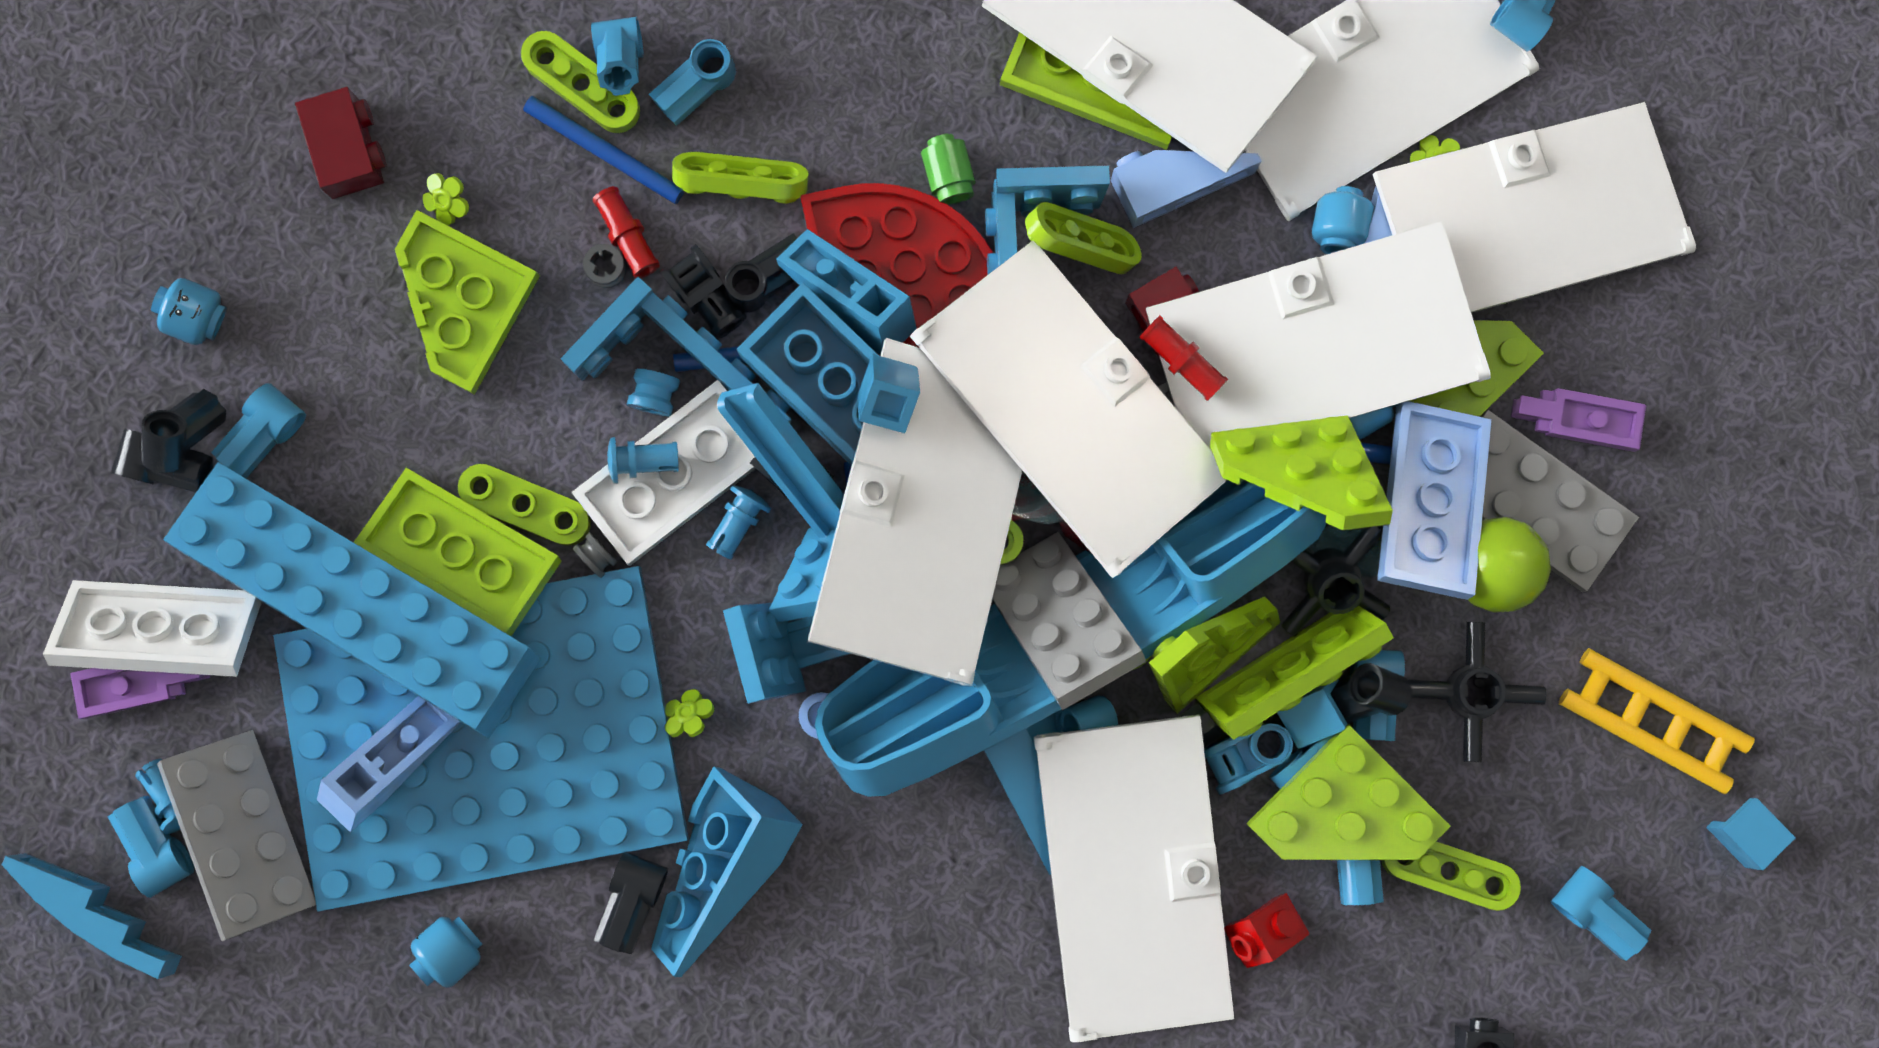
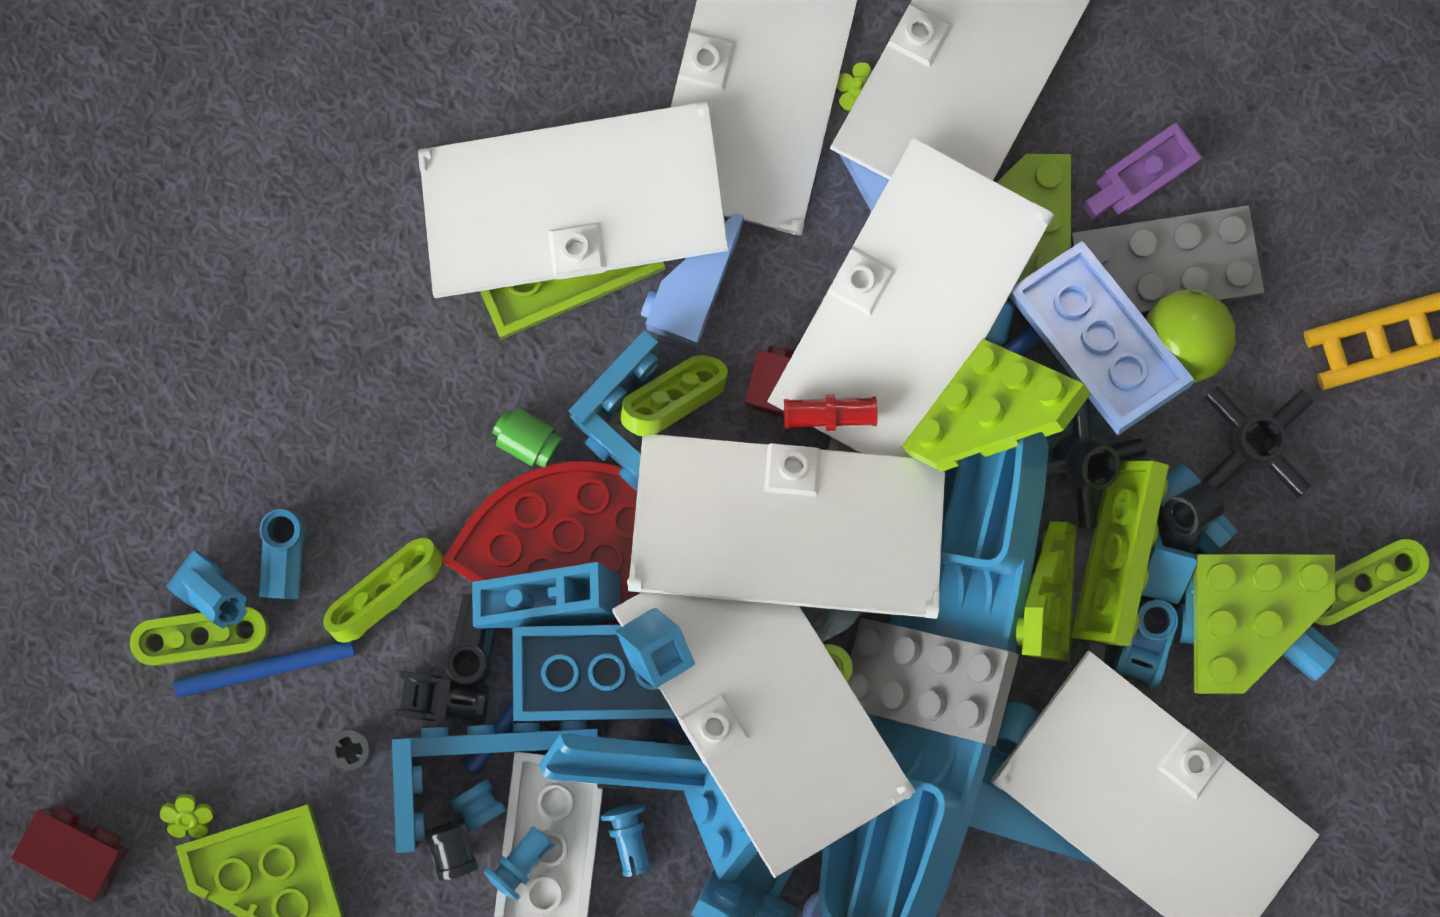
camera: 40 degrees left, 0 degrees up
(601, 400) = (451, 850): none -> black piece
(626, 232) = (341, 711): red pin -> none
(1266, 932) = (1282, 752): red bracket -> none
(1342, 219) = (840, 200): dark azure head -> none

